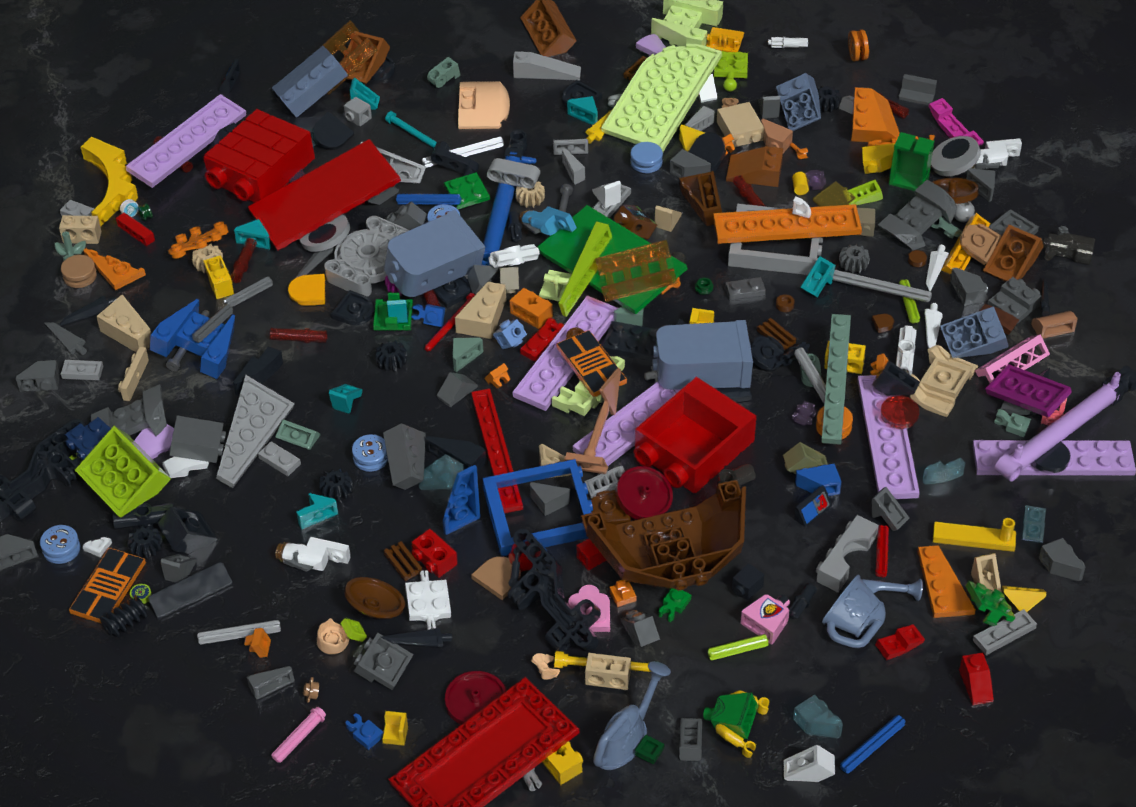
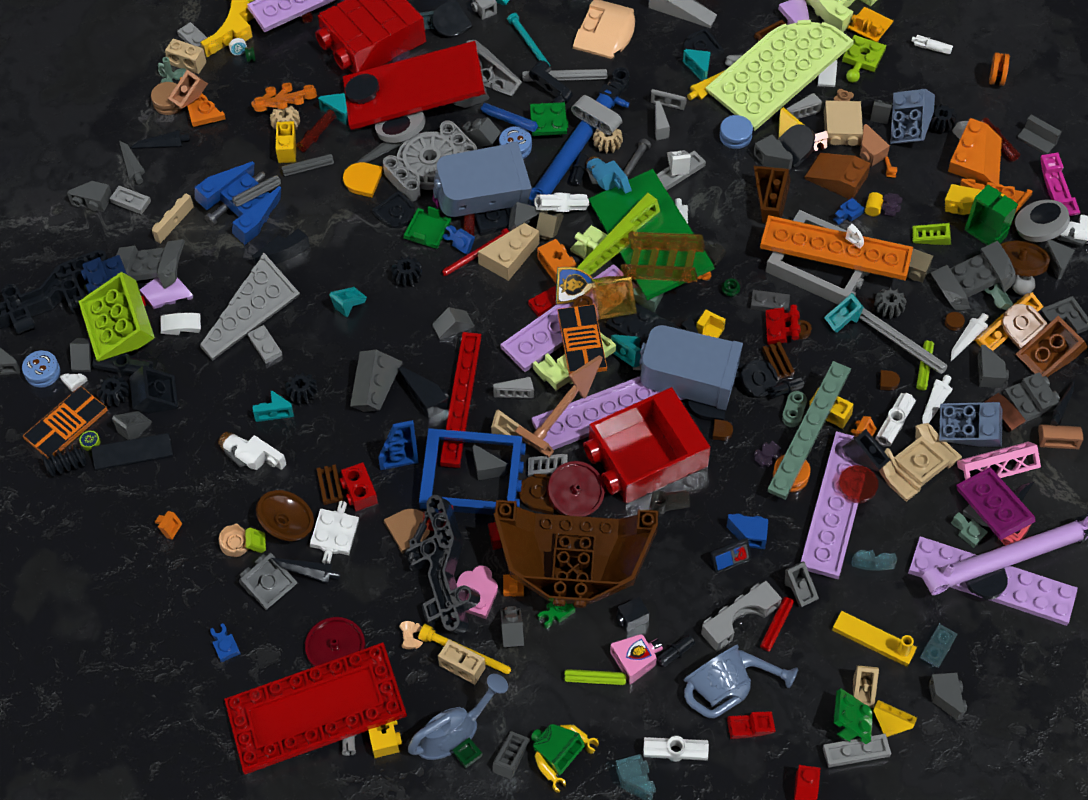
camera: 20 degrees right, 10 degrees up
(97, 520) = (81, 355): none -> dark grey slope
(100, 254) = (187, 89): none -> nougat slope
(124, 325) = (183, 165): tan wedge -> none
(135, 229) = (235, 69): red piece -> none
(197, 439) = (197, 303): dark grey brick -> none
(237, 632) = (157, 507): light grey axle -> none
(269, 681) = (161, 566): dark grey slope -> none
(274, 210) = (362, 88): none -> black tile
(297, 434) = (290, 324): sand green slope -> none
(300, 335) = (339, 225): clear red pin -> none
(311, 690) = (194, 587): medium nougat plate -> none
(317, 715) = (165, 627): bright pink axle -> none
(370, 453) = (344, 364): medium blue head -> none
(395, 728) = (250, 652): yellow panel -> none
(398, 309) = (430, 225): teal slope -> none
(441, 474) = (400, 408): clear light blue slope -> none
(465, 351) = (475, 287): sand green slope -> none
(498, 373) = (495, 320): orange tile -> none
(510, 334) = (524, 282): medium blue brick -> none
(544, 426) = (514, 389): none -> light grey slope
(559, 320) = (571, 284): none -> shield
(602, 319) = (614, 296): none -> clear yellow slope
(630, 216) = (692, 199): reddish brown torso -> none
(636, 362) = (627, 349): none -> teal slope
(666, 218) = (727, 202): tan slope -> none
(747, 191) = (817, 197): clear red pin -> none
(754, 405) = (722, 430): none -> reddish brown tile
(762, 307) = (776, 324): none -> red plate
(780, 194) = (849, 210): none -> blue plate
(802, 457) = (744, 502): olive slope -> none
(811, 372) = (790, 411): light grey axle -> none
(832, 684) = (662, 748): none -> white piece
(834, 196) = (901, 229): clear yellow piece -> none
(942, 585) = (819, 679): orange wing -> none

